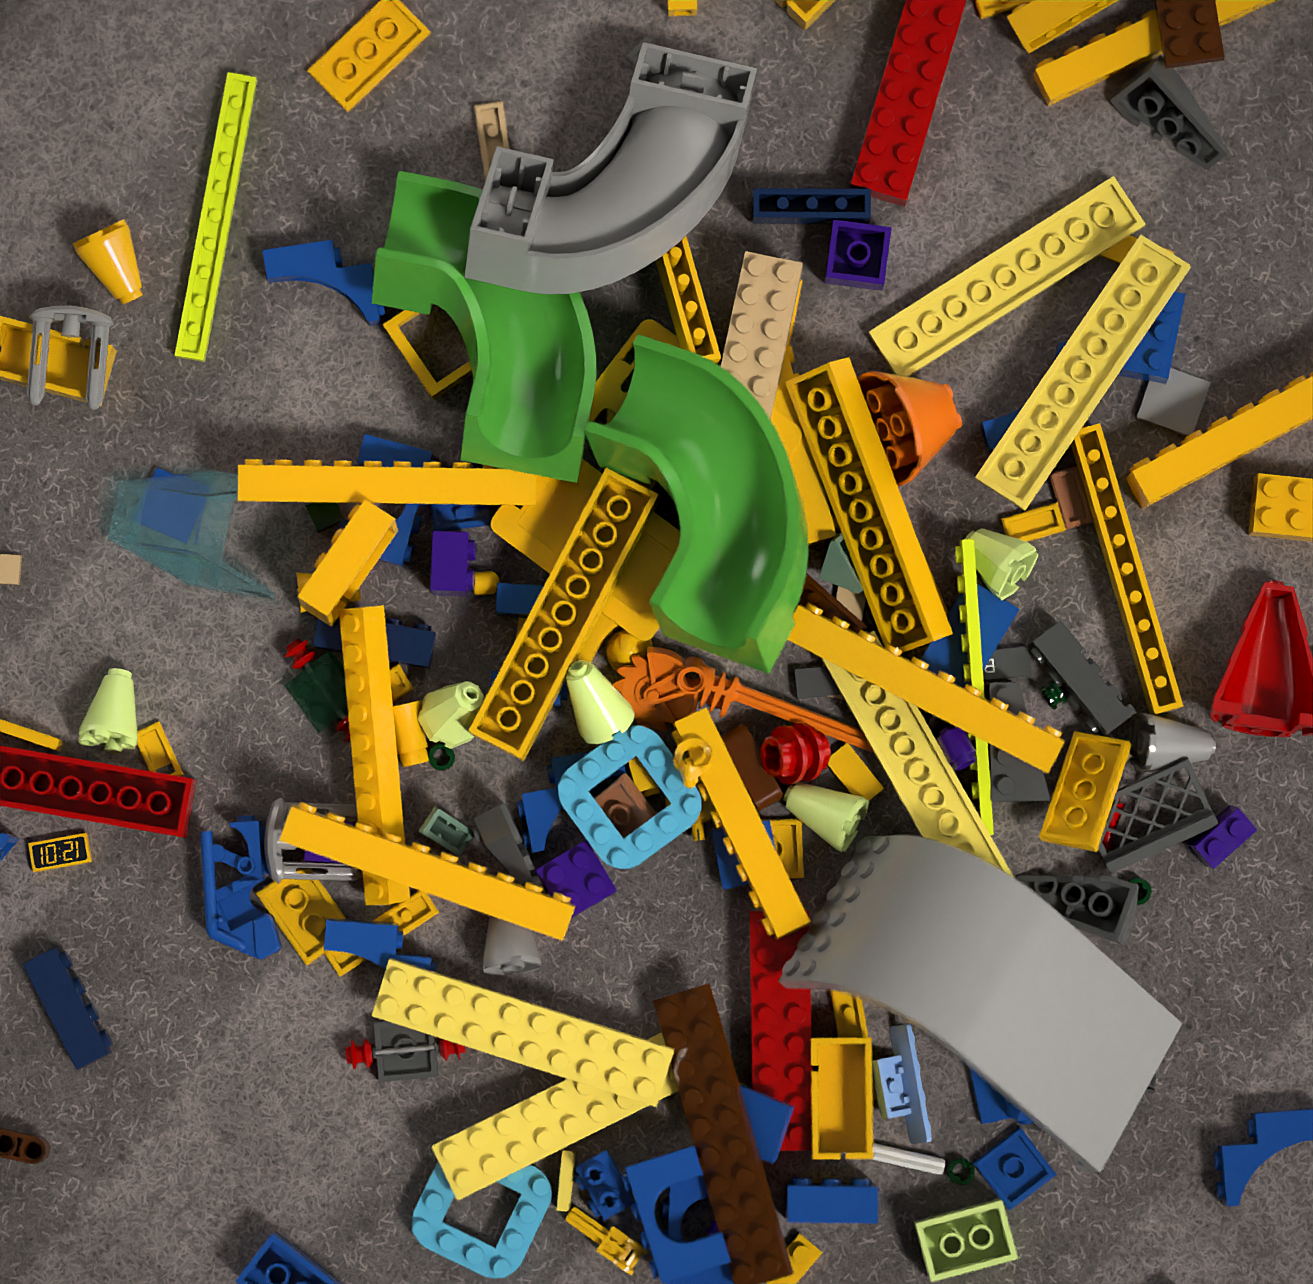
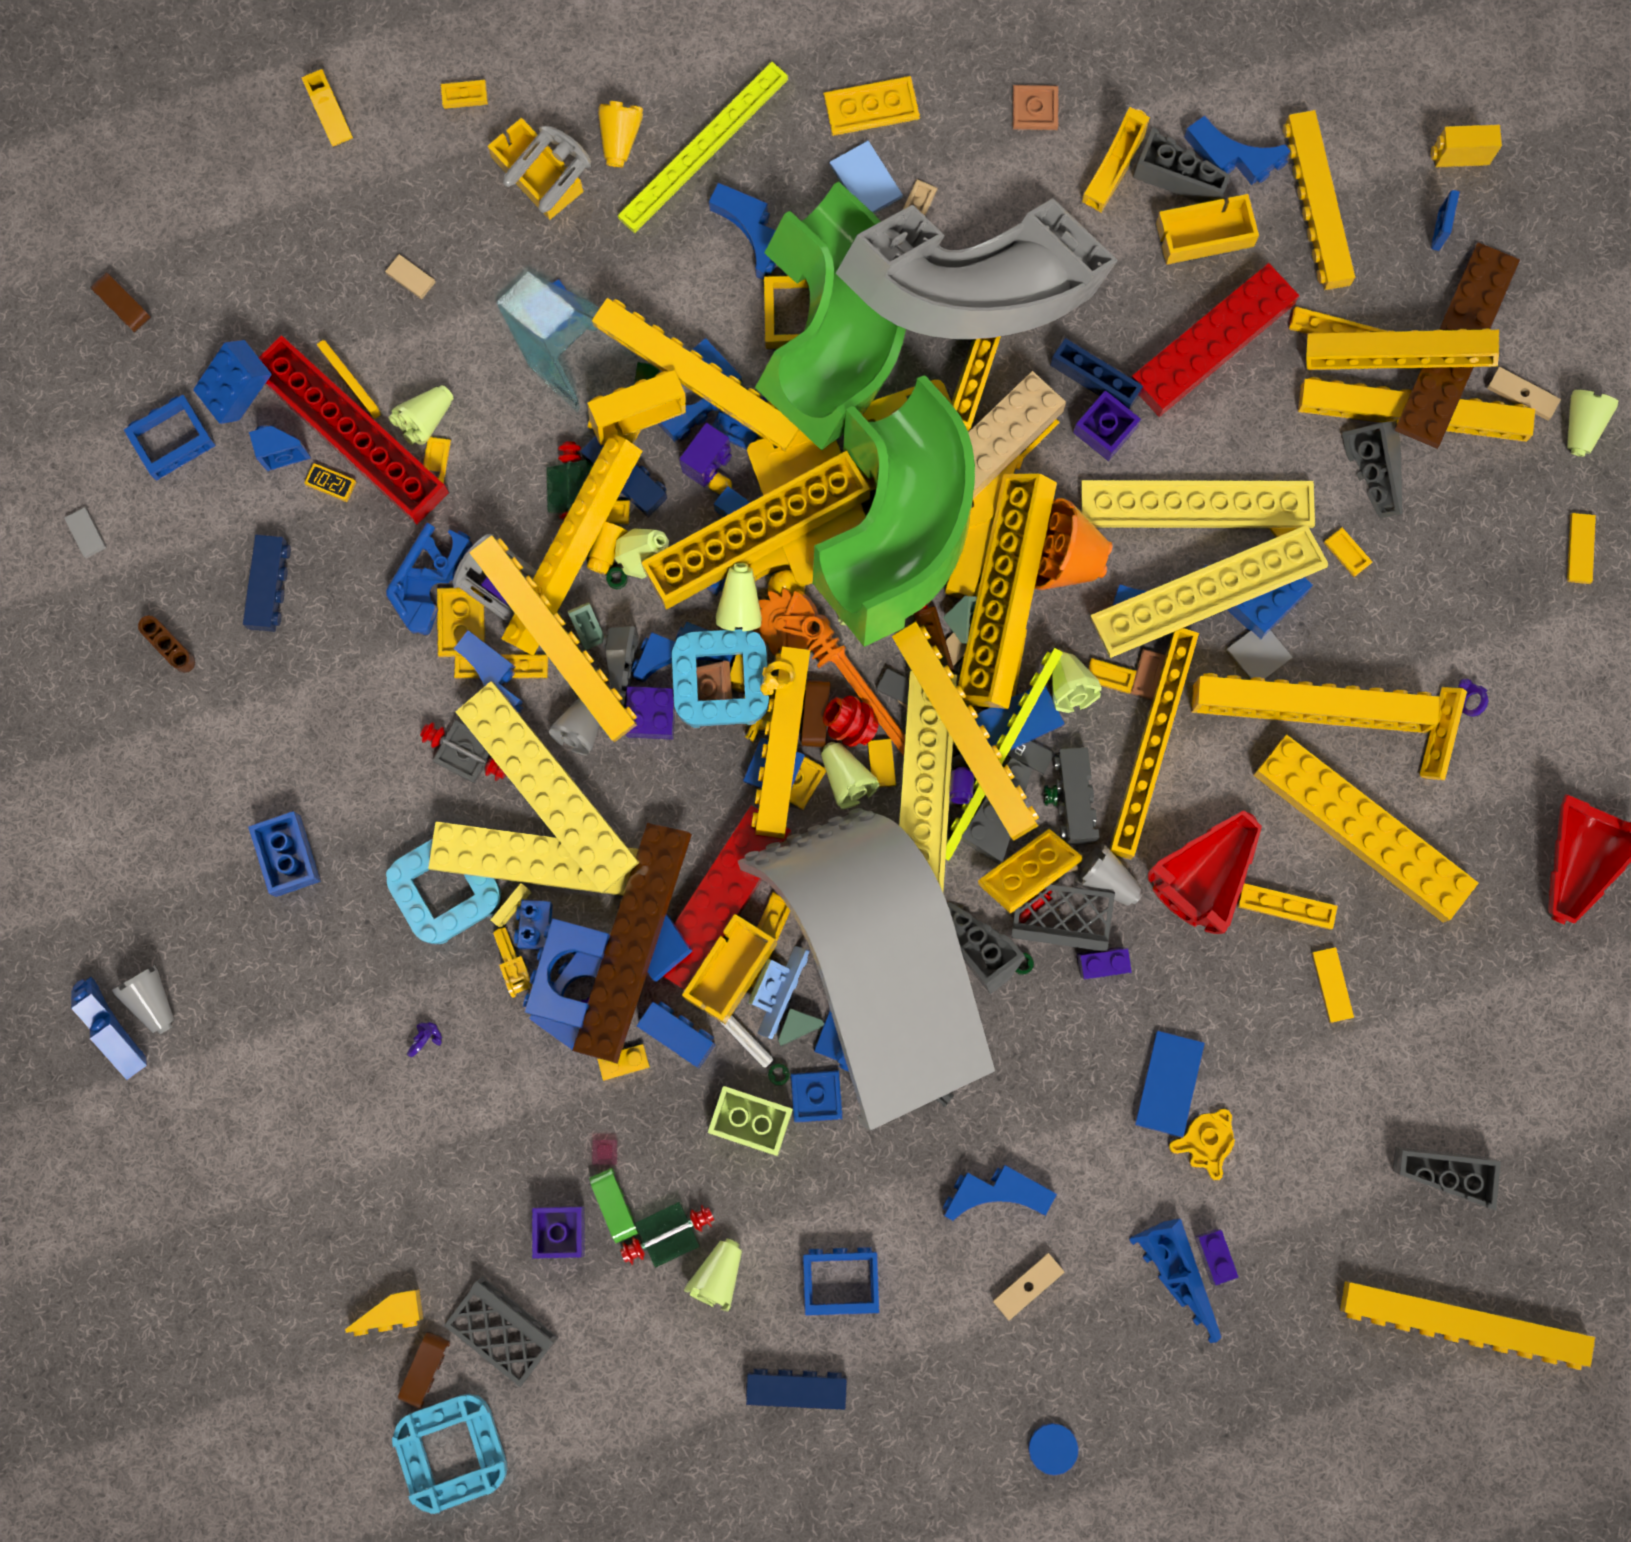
camera: 35 degrees right, 5 degrees down
(417, 139) = (866, 177): none -> light blue tile
(948, 1109) = (798, 1025): none -> sand green slope
(1197, 229) = (1348, 552): none -> yellow tile

